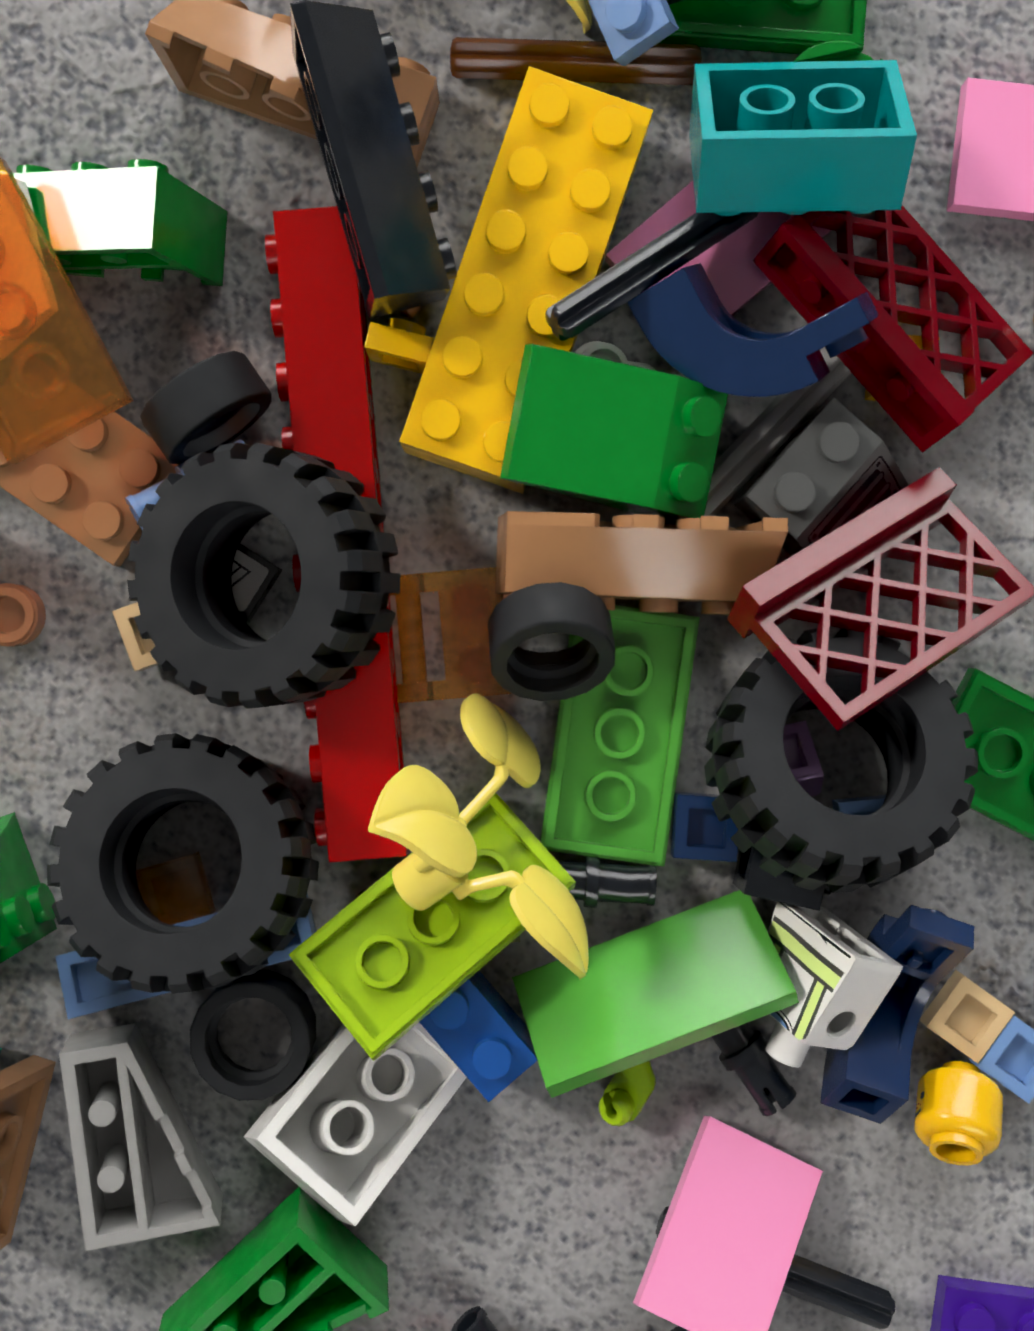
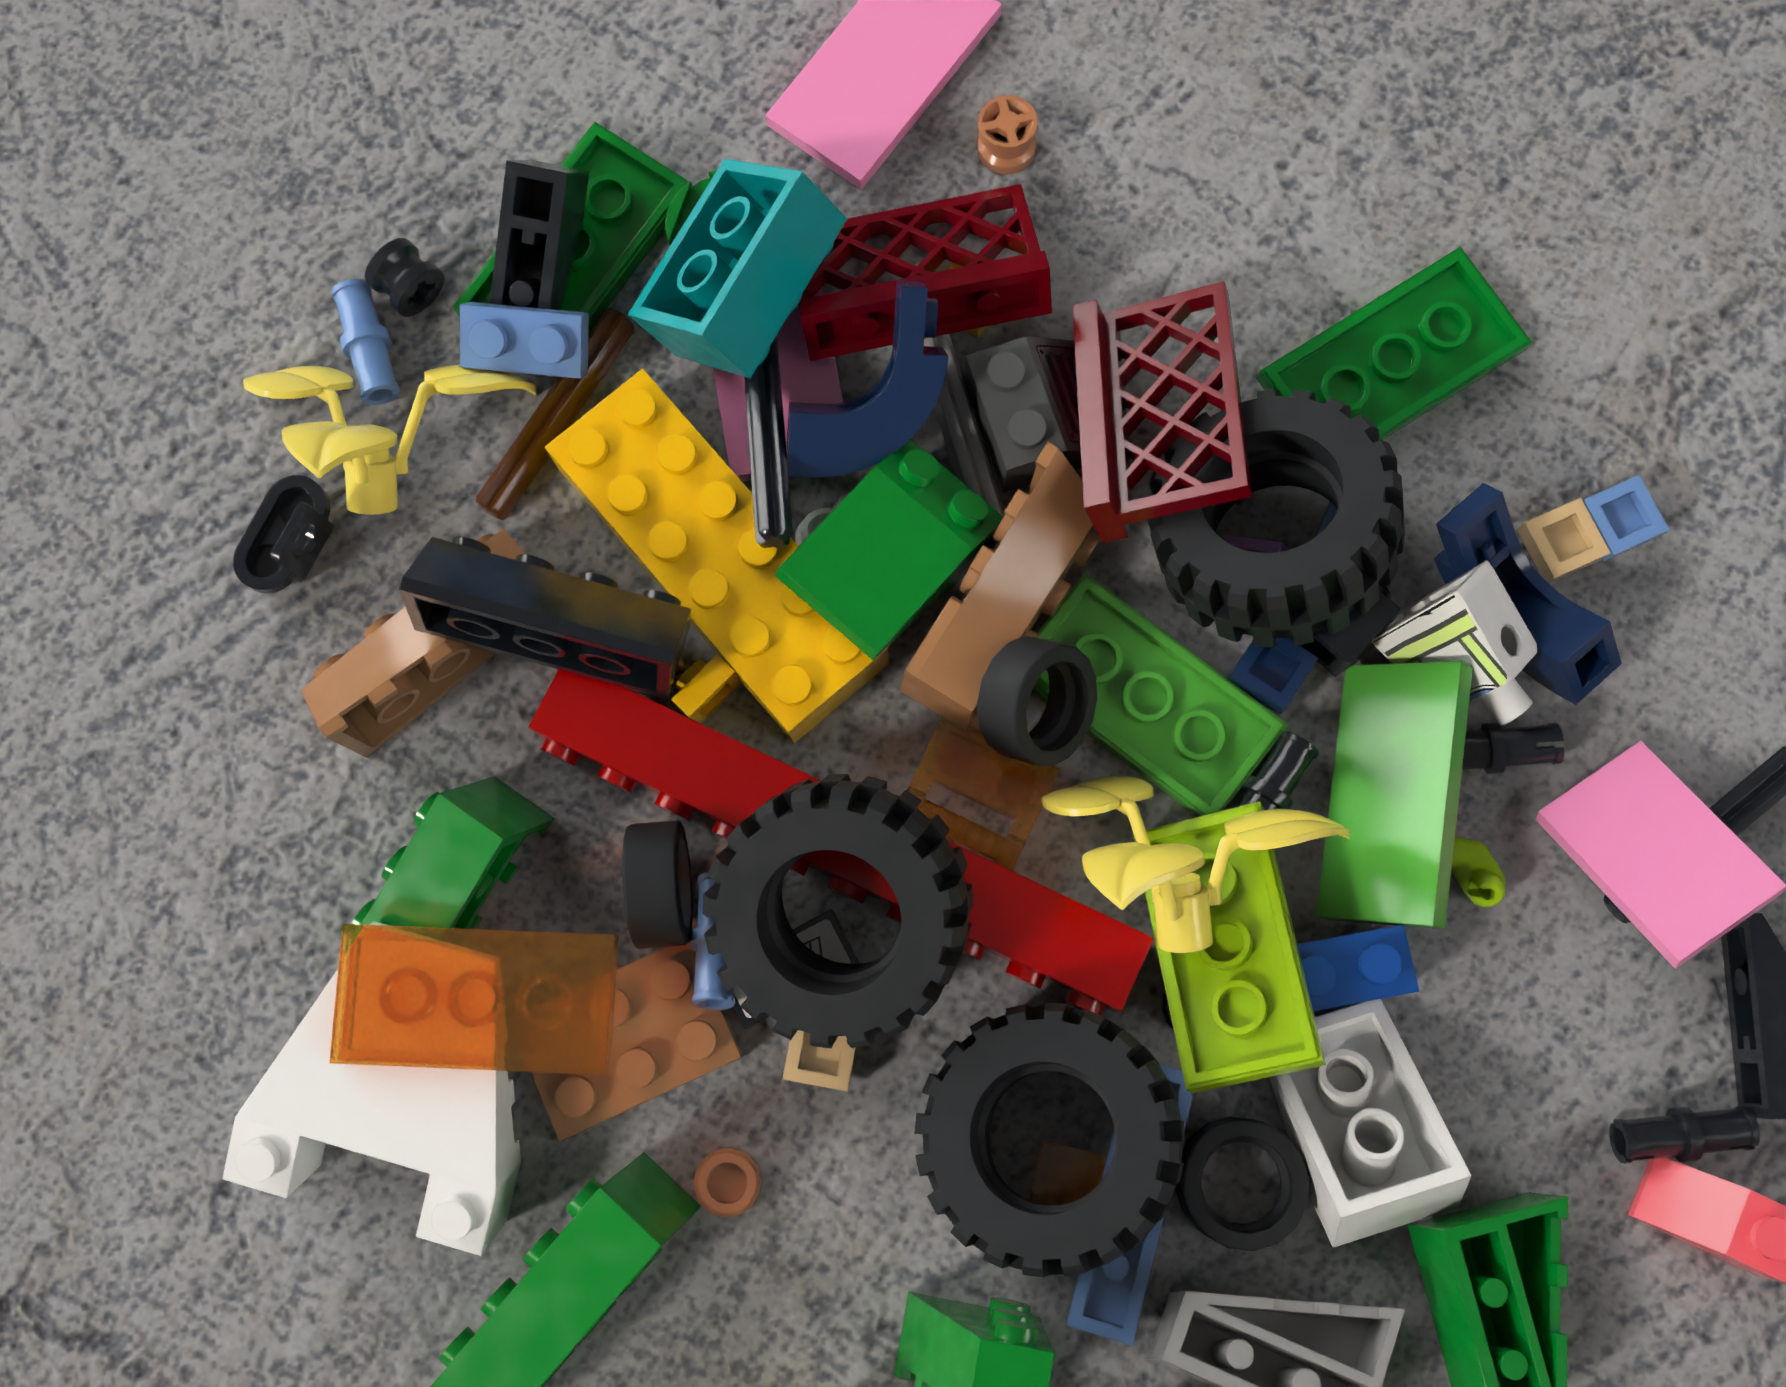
camera: 55 degrees left, 10 degrees down
(959, 1113) = (1647, 592): yellow head -> none

